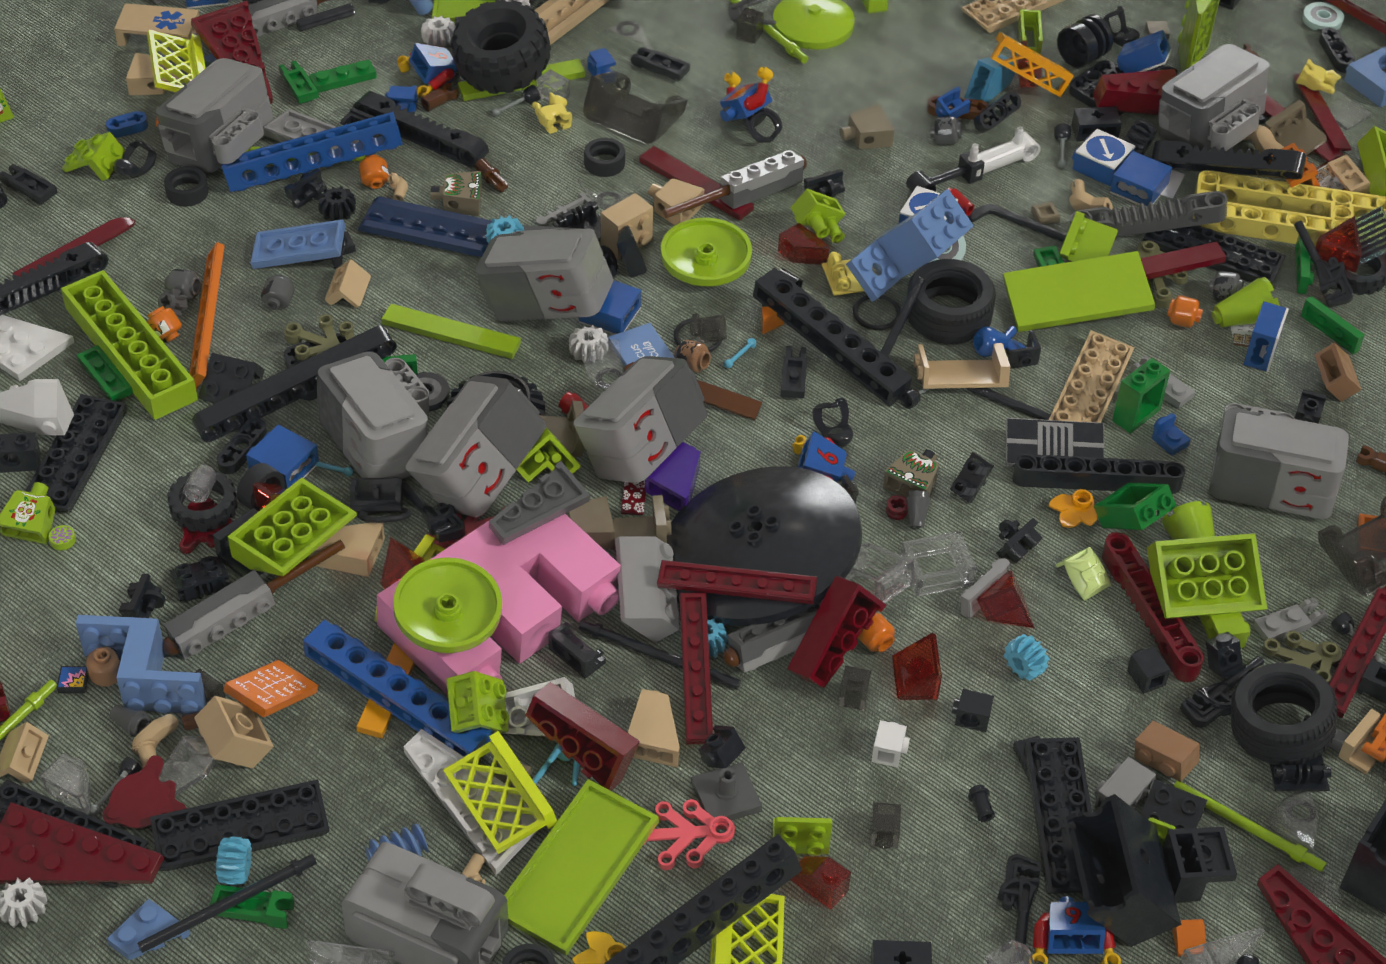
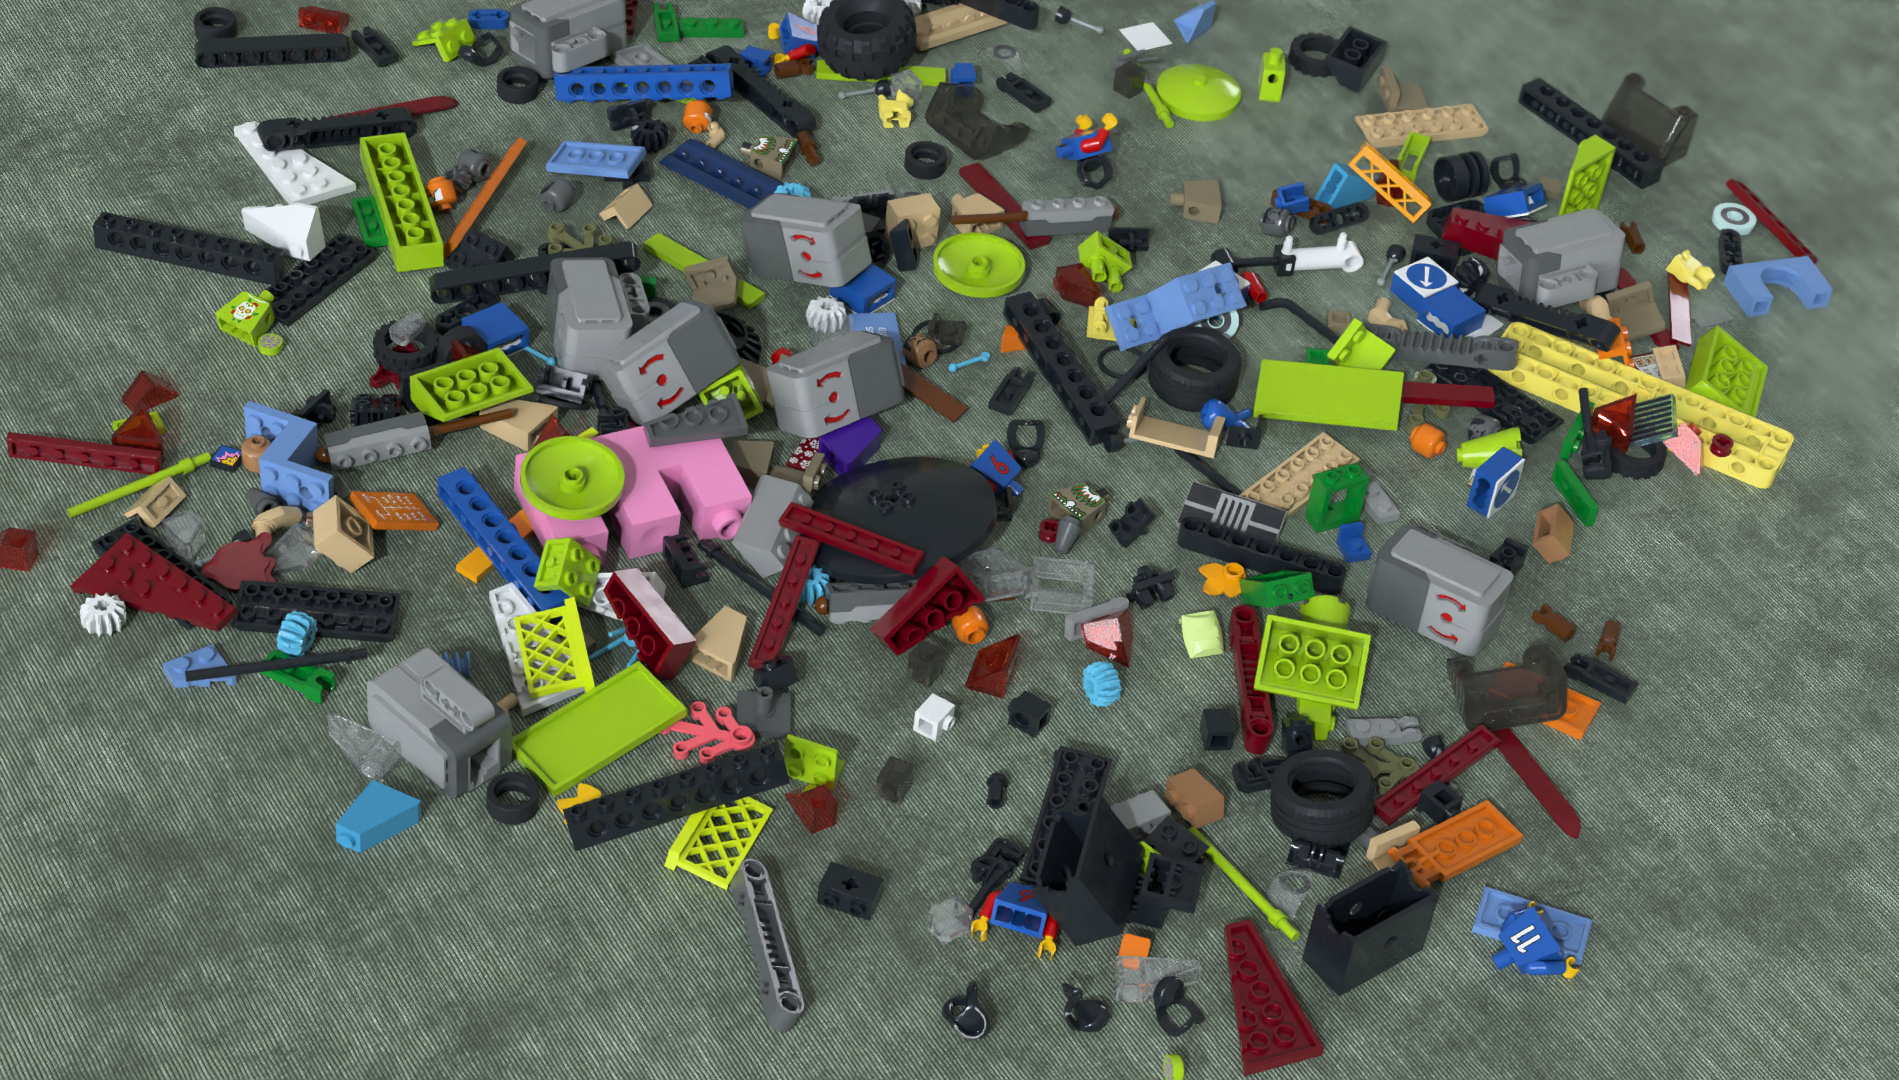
camera: 15 degrees right, 5 degrees down
(471, 347) = (714, 282): none -> dark tan bracket

